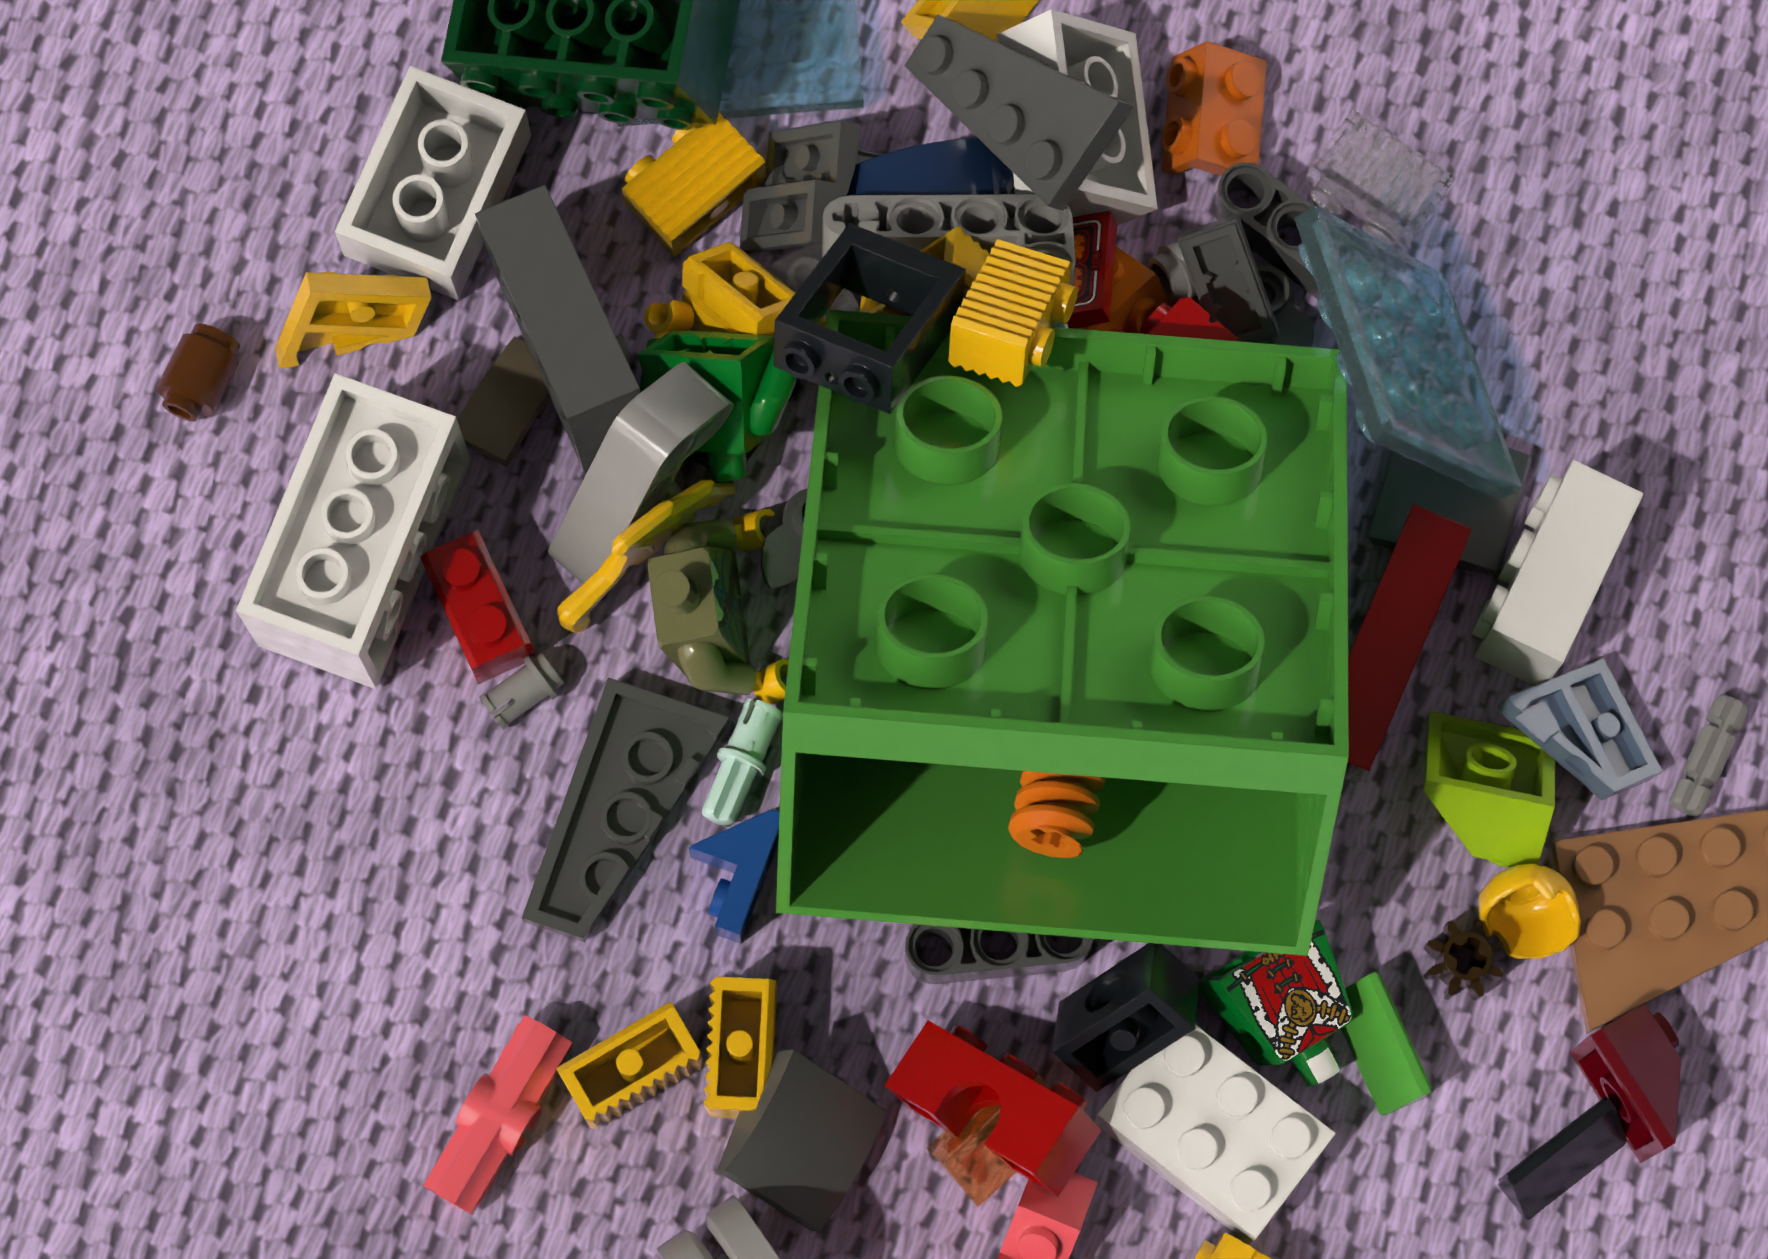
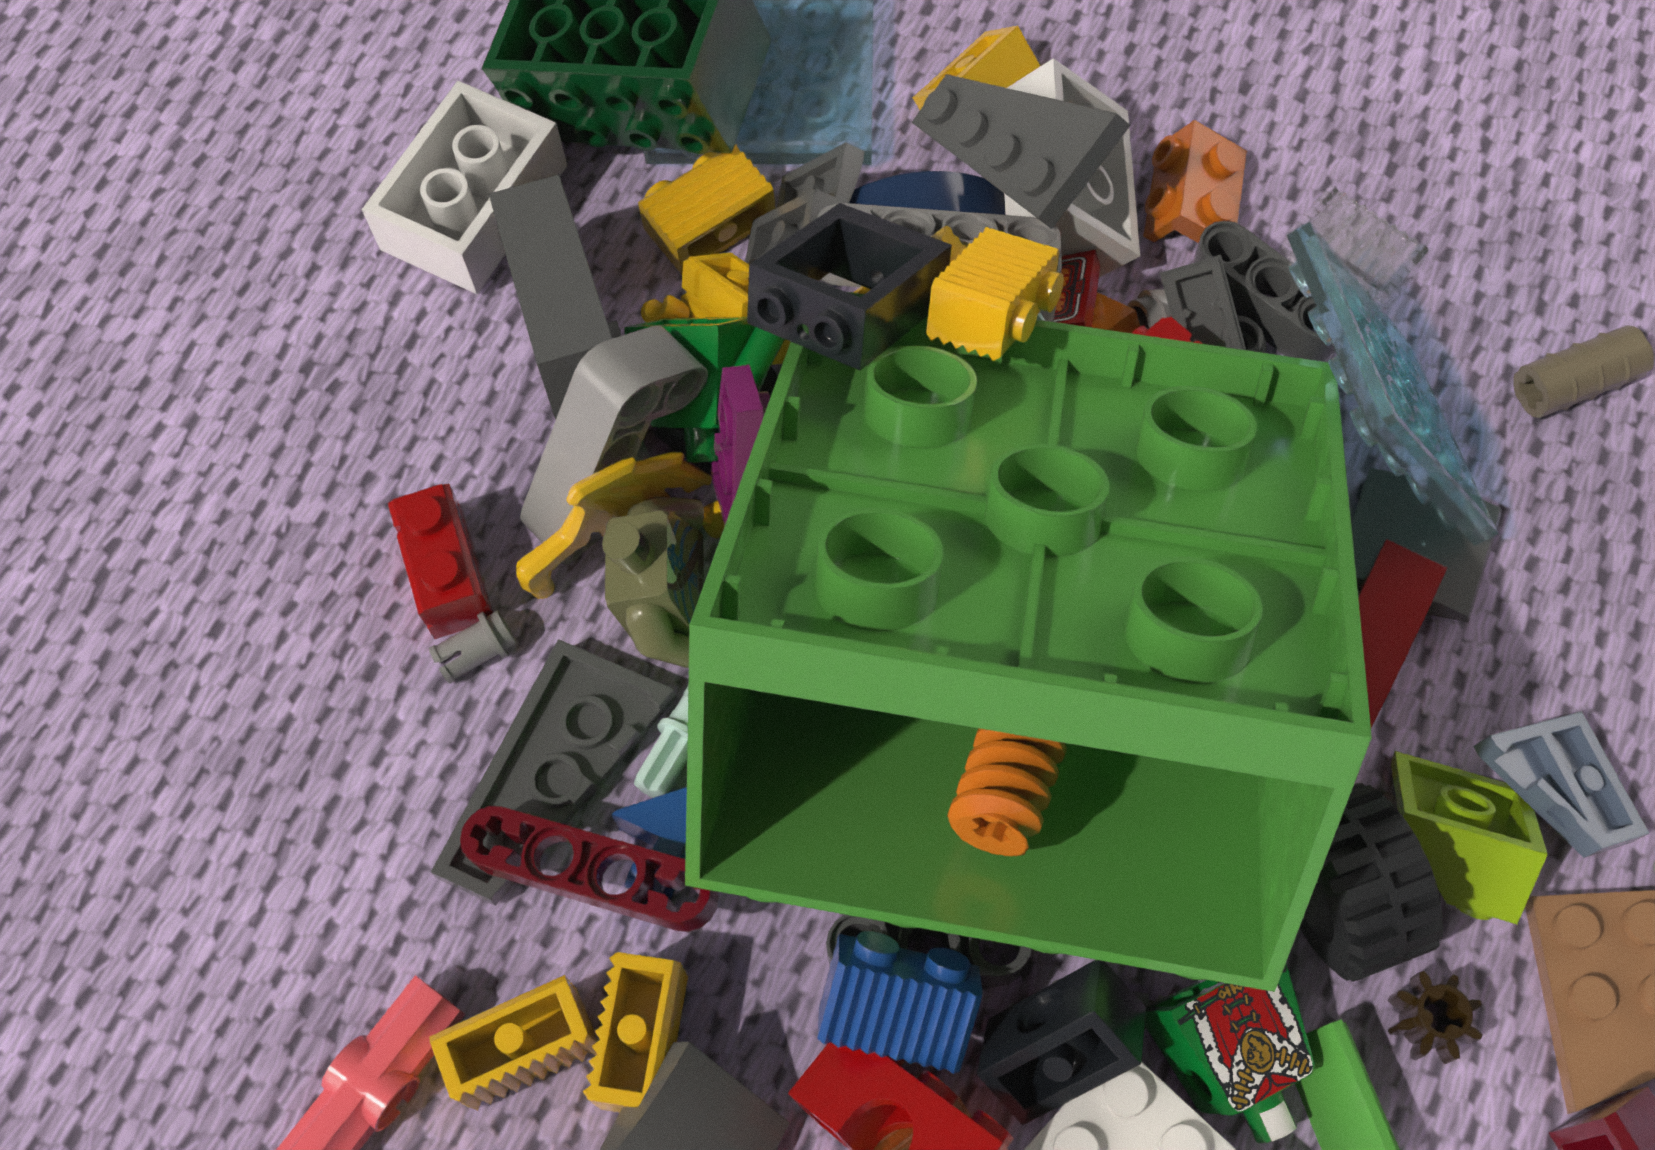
camera: 10 degrees right, 10 degrees down
(198, 372) = (223, 333): reddish brown brick -> none
(351, 313) = (370, 289): yellow wing -> none
(354, 530) = (310, 470): white brick -> none
(504, 404) = (497, 385): dark tan slope -> none
(673, 910) = (585, 874): none -> dark red beam
(776, 495) = (740, 418): none -> magenta wing
(977, 994) = (900, 1001): none -> blue brick
(1390, 849) = (1374, 892): none -> black tyre
(1530, 911) = (1512, 969): yellow hair -> none
(1554, 572) = (1537, 617): white brick -> none
(1615, 296) = (1583, 371): none -> dark tan axle

